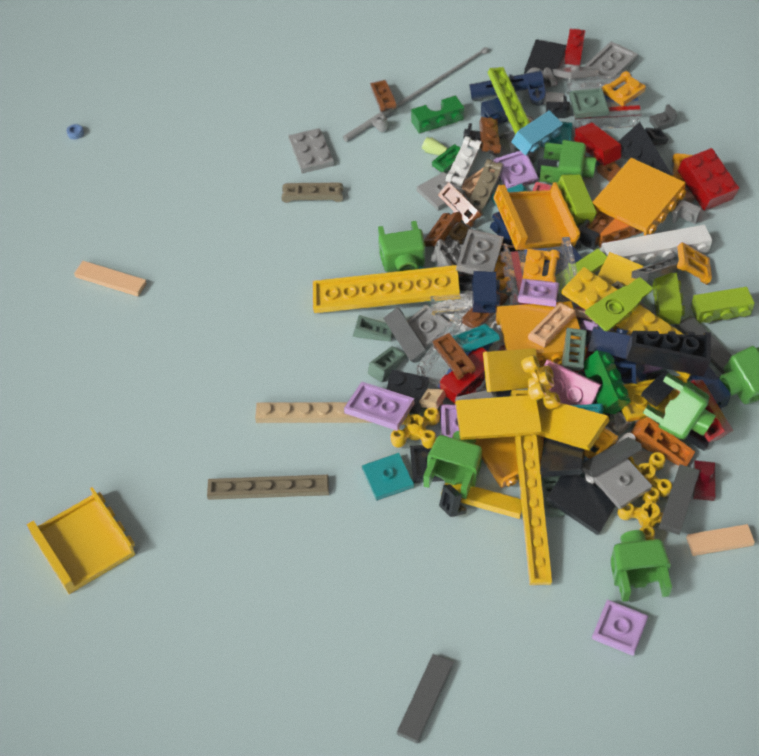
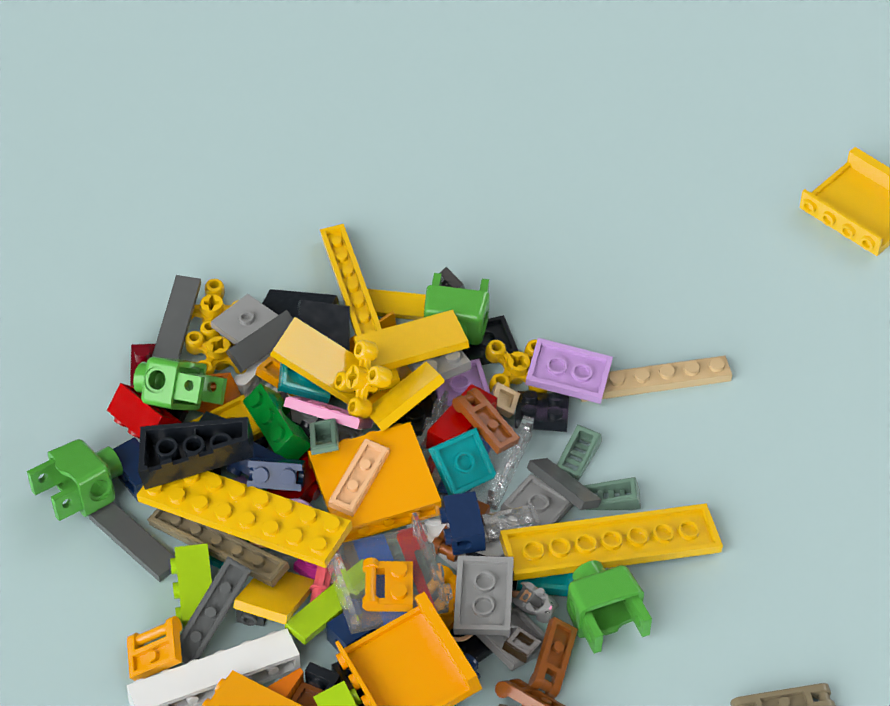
camera: 165 degrees right, 5 degrees down
(268, 487) = (677, 288): dark tan tile -> none
(387, 476) = (536, 317): teal plate -> none
(424, 698) = (437, 124): dark grey tile -> none
(538, 292) = (385, 534): lavender plate -> none
(619, 304) = (269, 499): lime piece -> none
(620, 627) = (239, 204): lavender plate -> none
(640, 562) = (222, 250): bright green piece -> none
(720, 540) = (126, 304): light nougat tile -> none
(722, 305) = (112, 595): lime brick -> none

